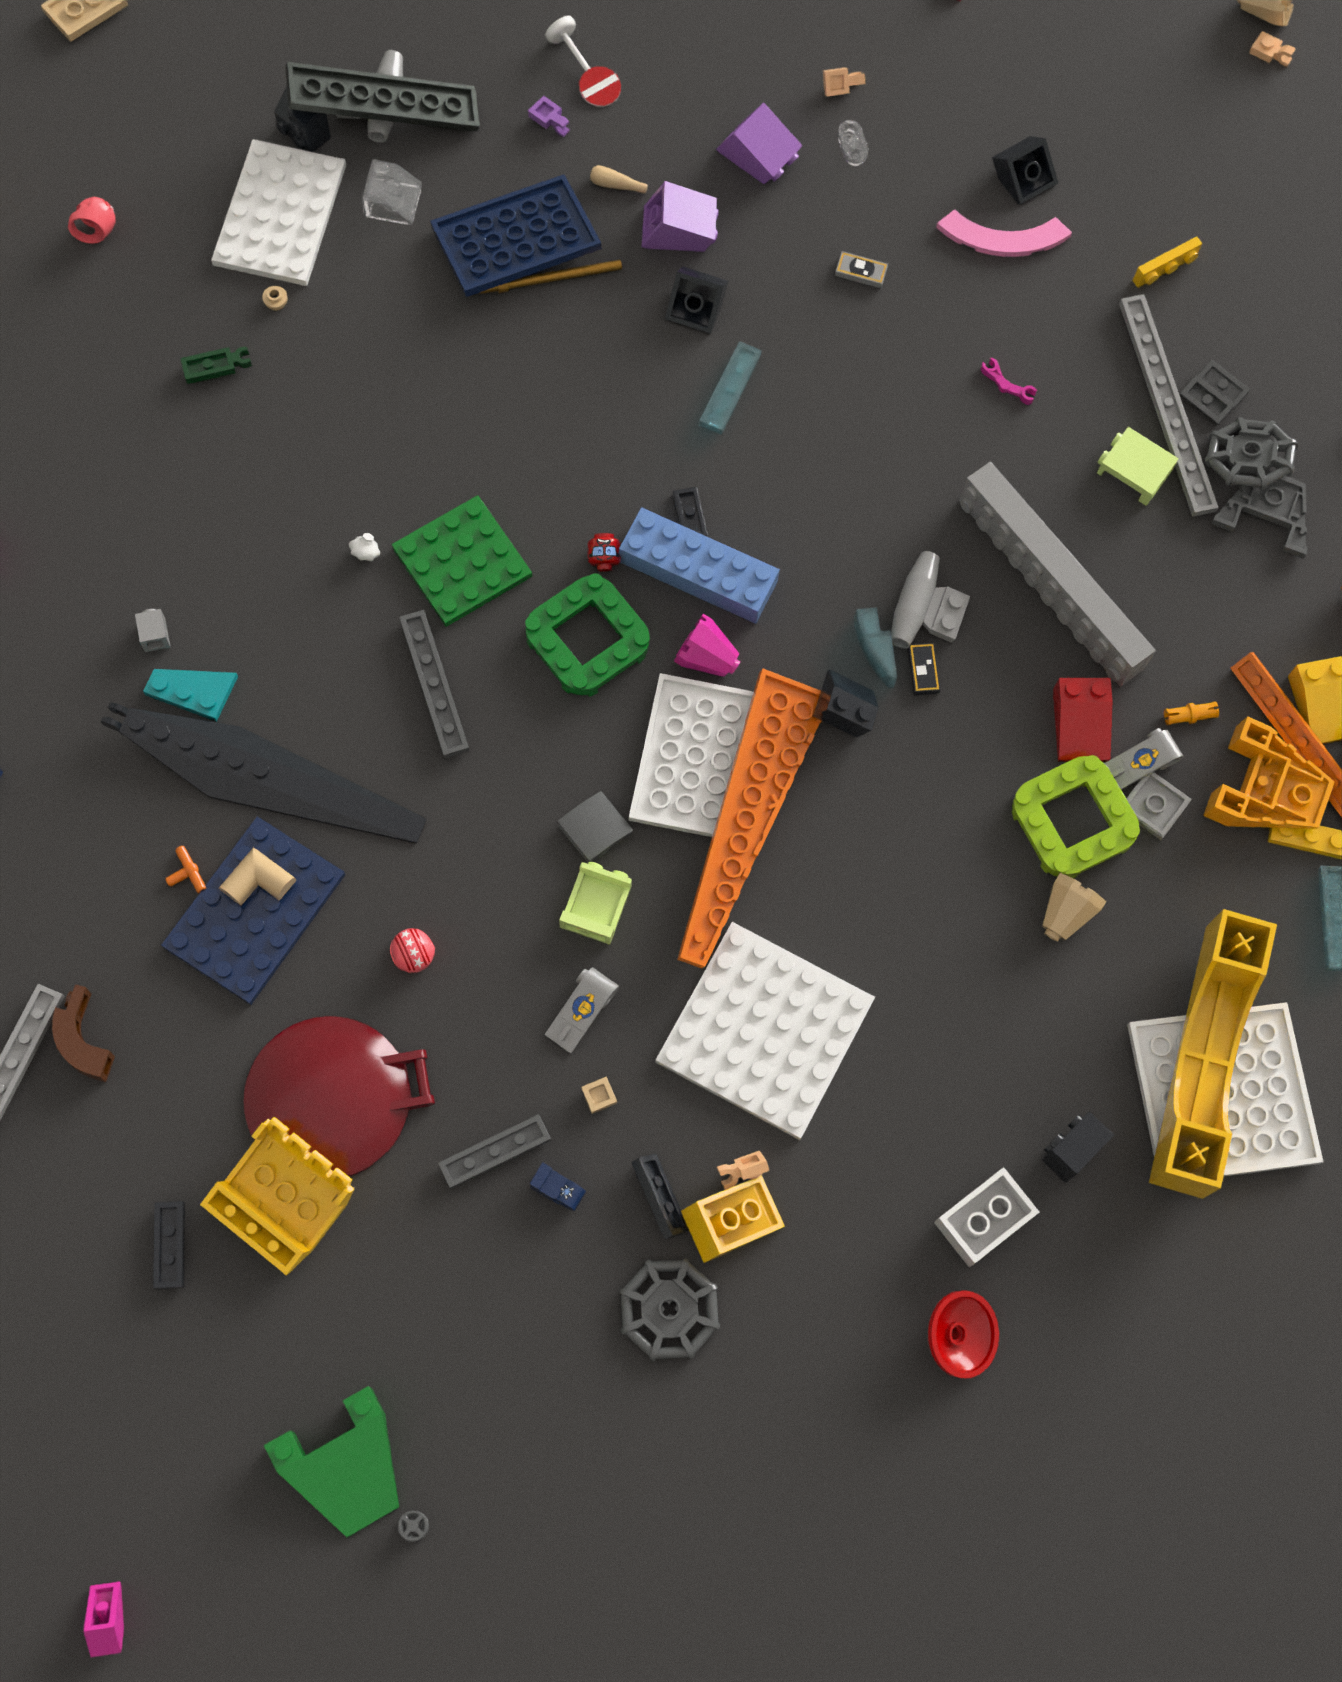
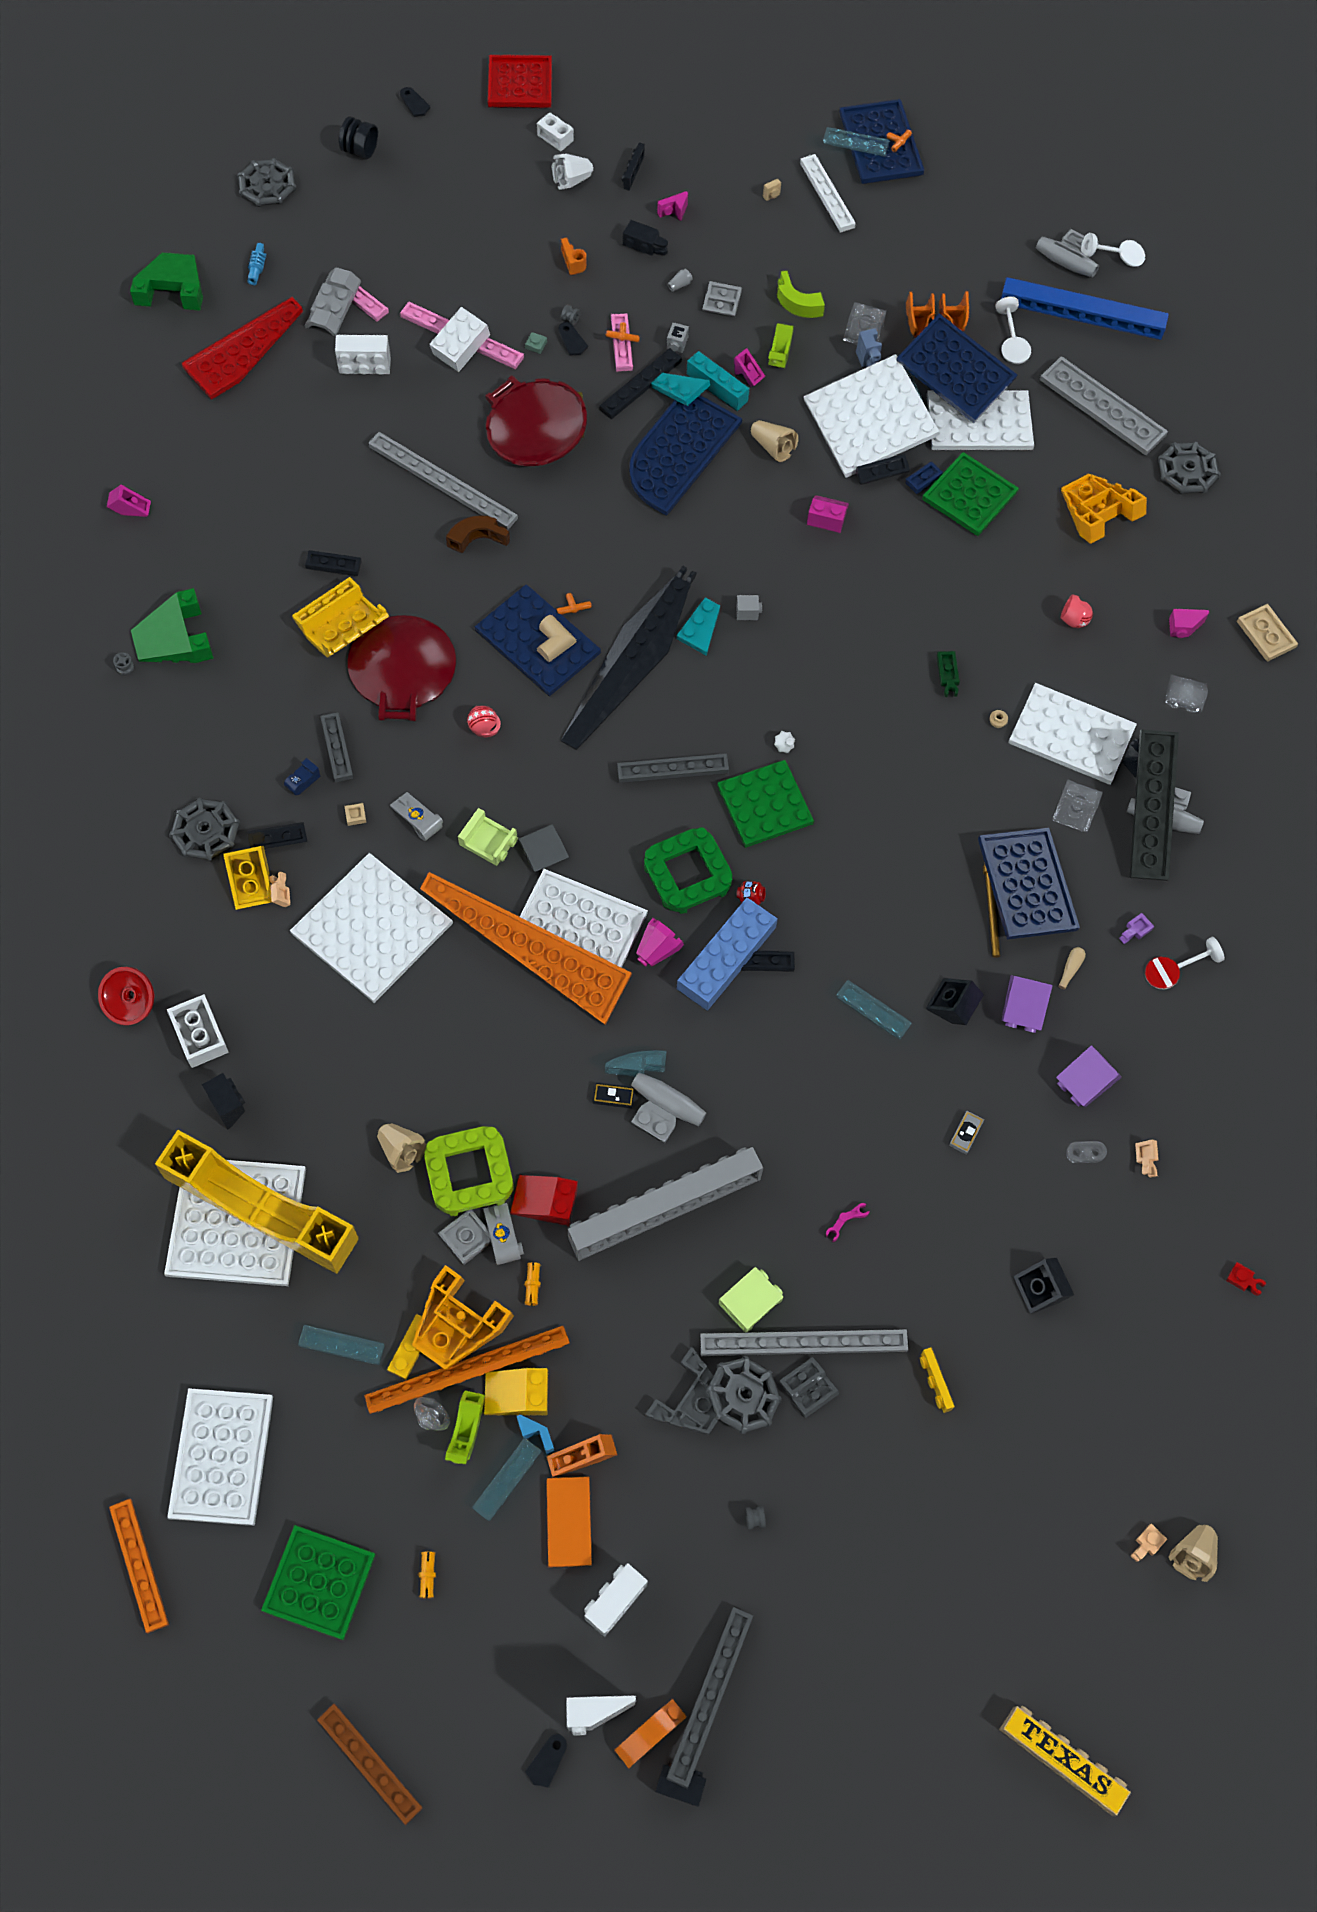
camera: 105 degrees right, 5 degrees down
(85, 95) = (1186, 621): none -> dark pink slope
(196, 86) = (1186, 694): none -> clear slope
(846, 705) = (595, 1029): black slope -> none
(1003, 242) = (976, 1254): bright pink tile -> none

